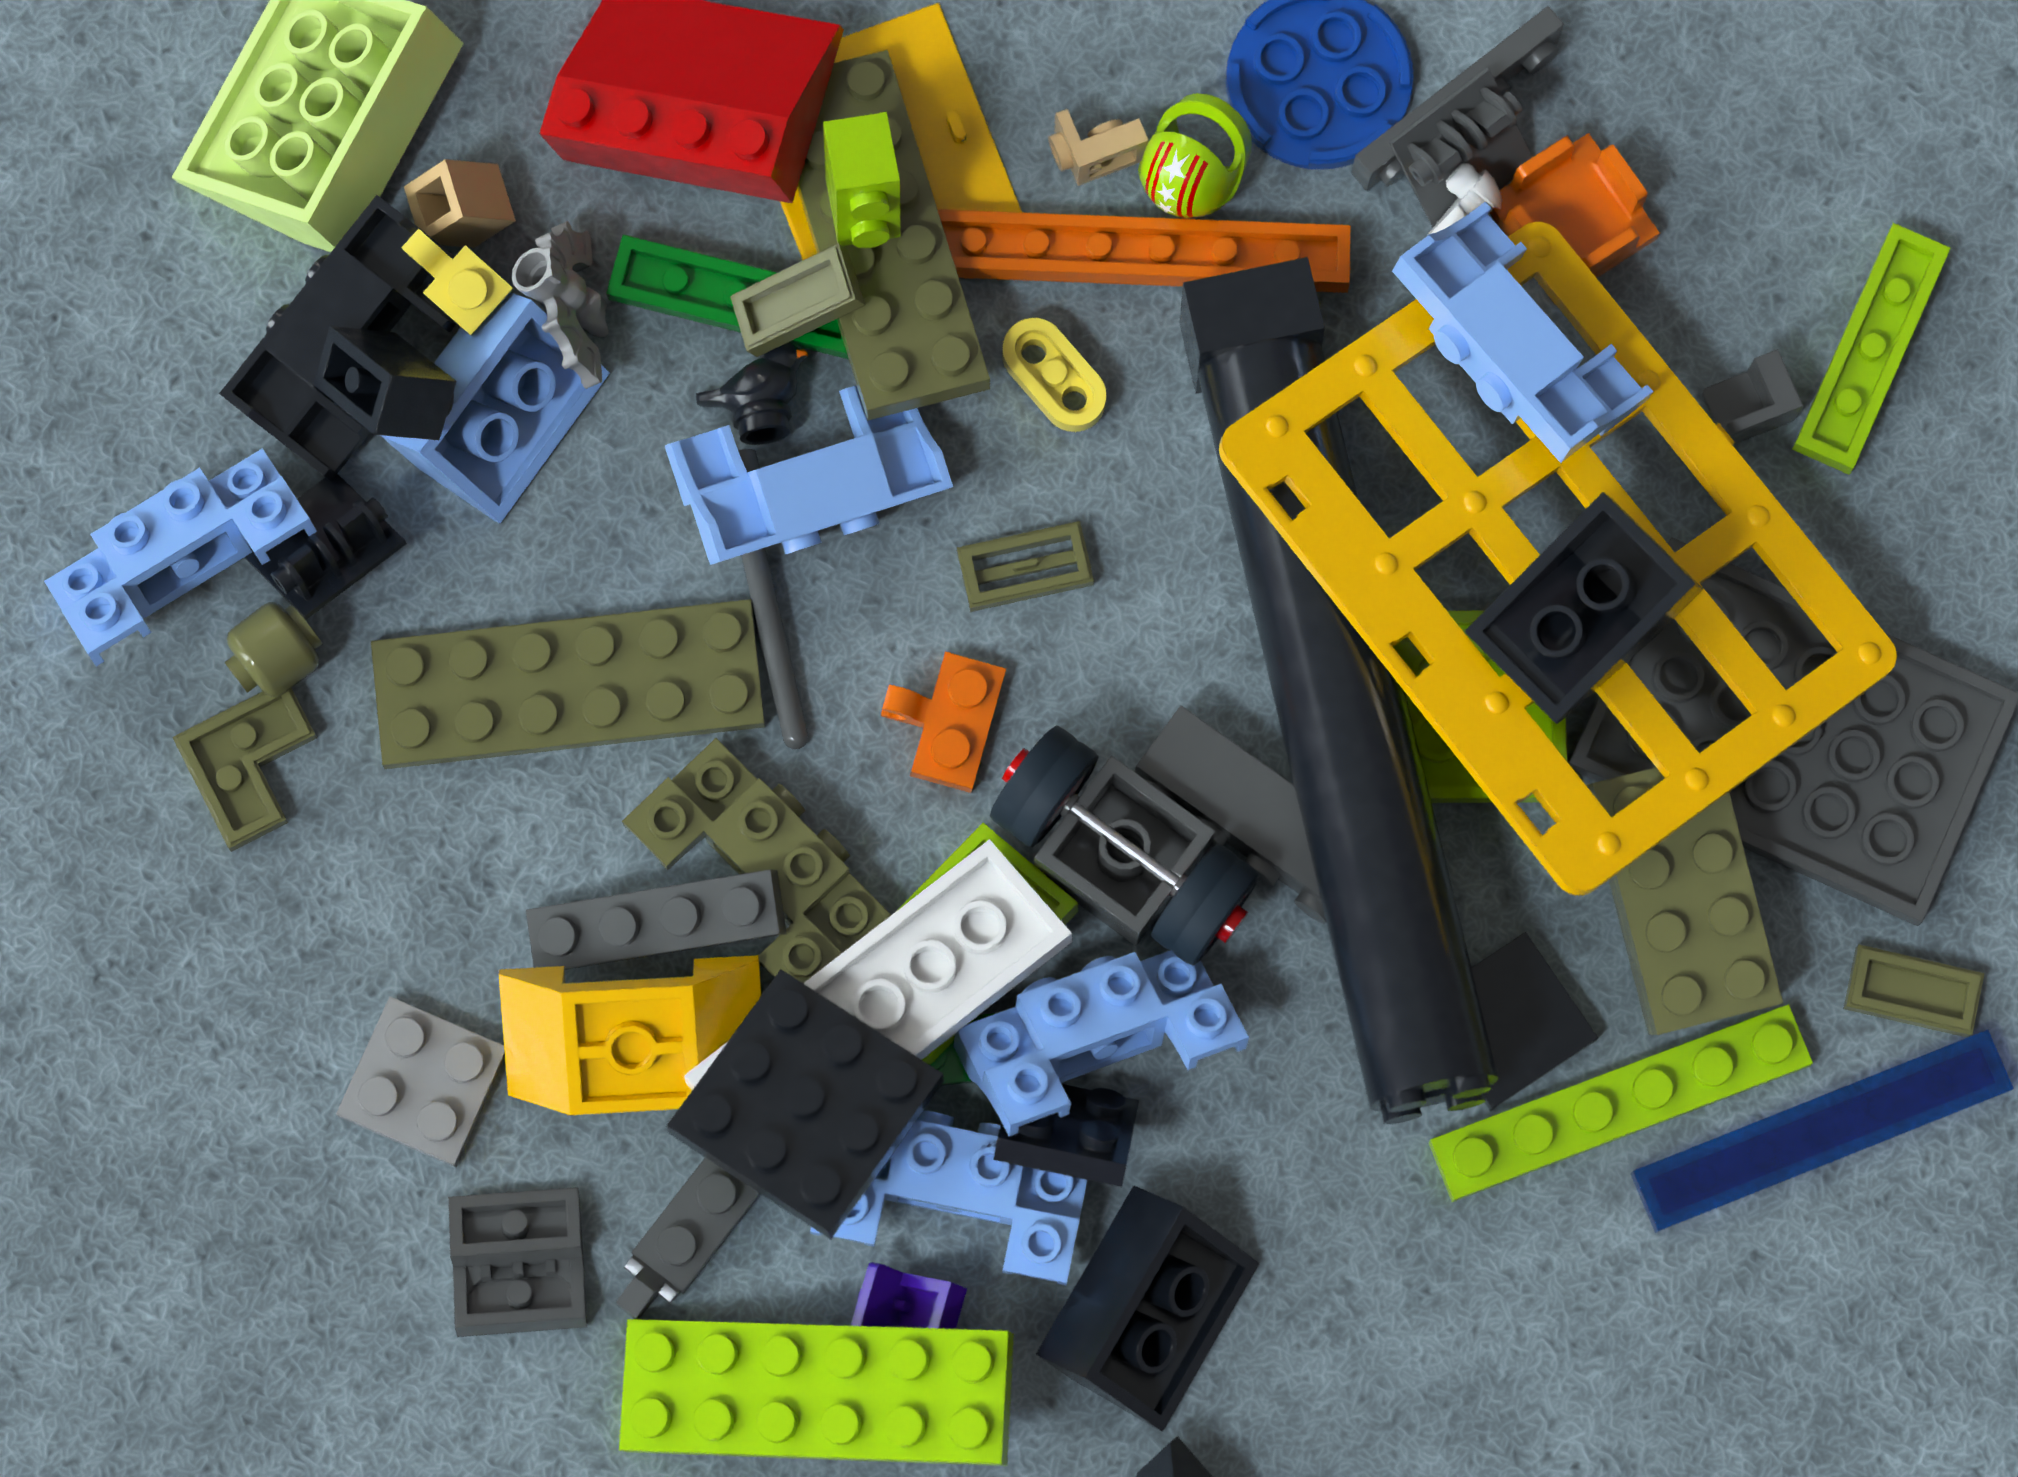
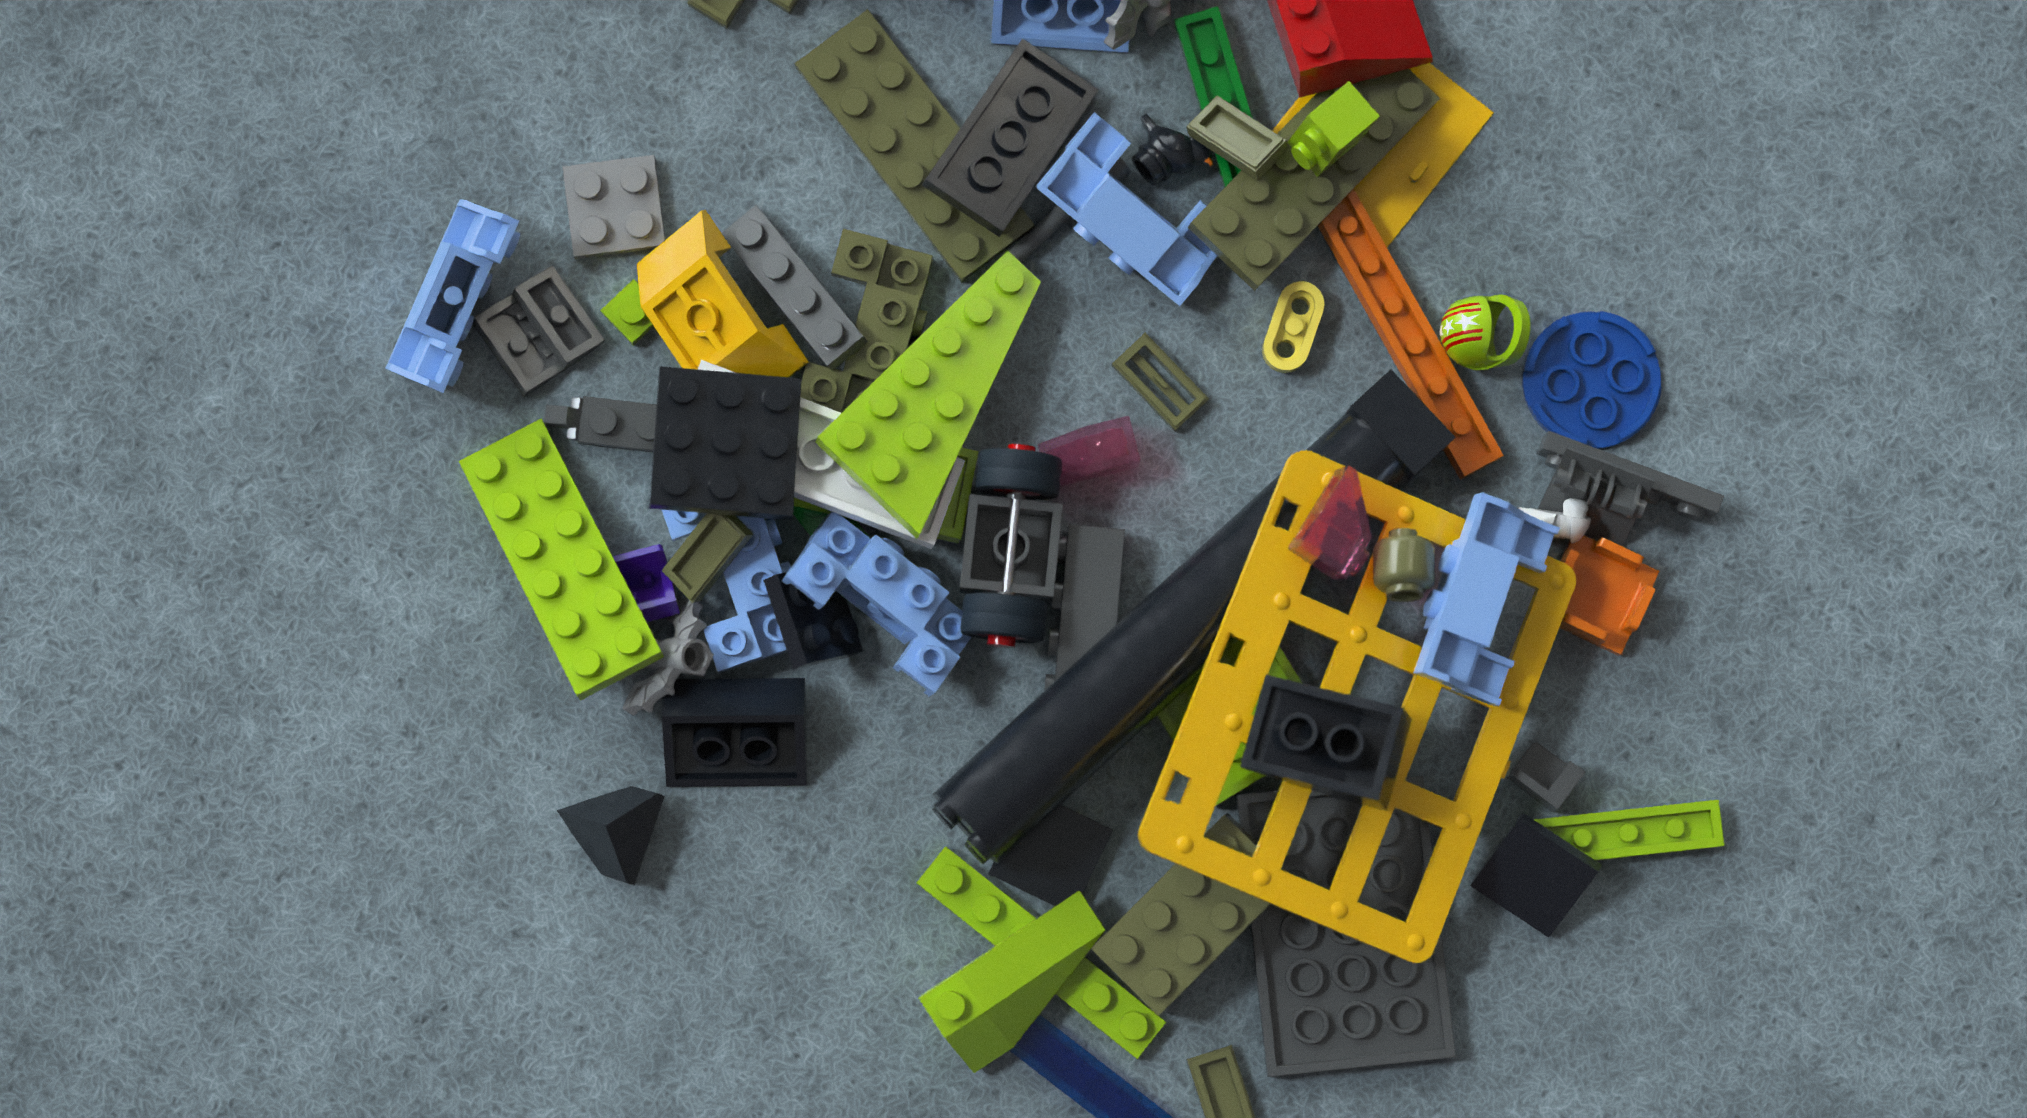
camera: 55 degrees right, 5 degrees up
(412, 1339) = (448, 295): none -> light blue bracket
(563, 1139) = (626, 313): none -> lime plate
(632, 563) = (1010, 137): none -> black plate
(901, 857) = (918, 412): none -> lime wing
(918, 1212) = (706, 554): none -> olive tile
(952, 721) = (1034, 395): orange plate -> none
(1023, 1311) = (681, 655): none -> light grey animal
(1064, 683) = (1094, 450): none -> clear pink slope
(1105, 151) = (1459, 274): tan bracket -> none
(1339, 447) = (1336, 528): none -> clear pink slope
(1429, 398) = (1404, 565): none -> olive head
(1642, 1164) = (1004, 990): none -> lime wedge
(1862, 477) = (1535, 875): none -> black tile

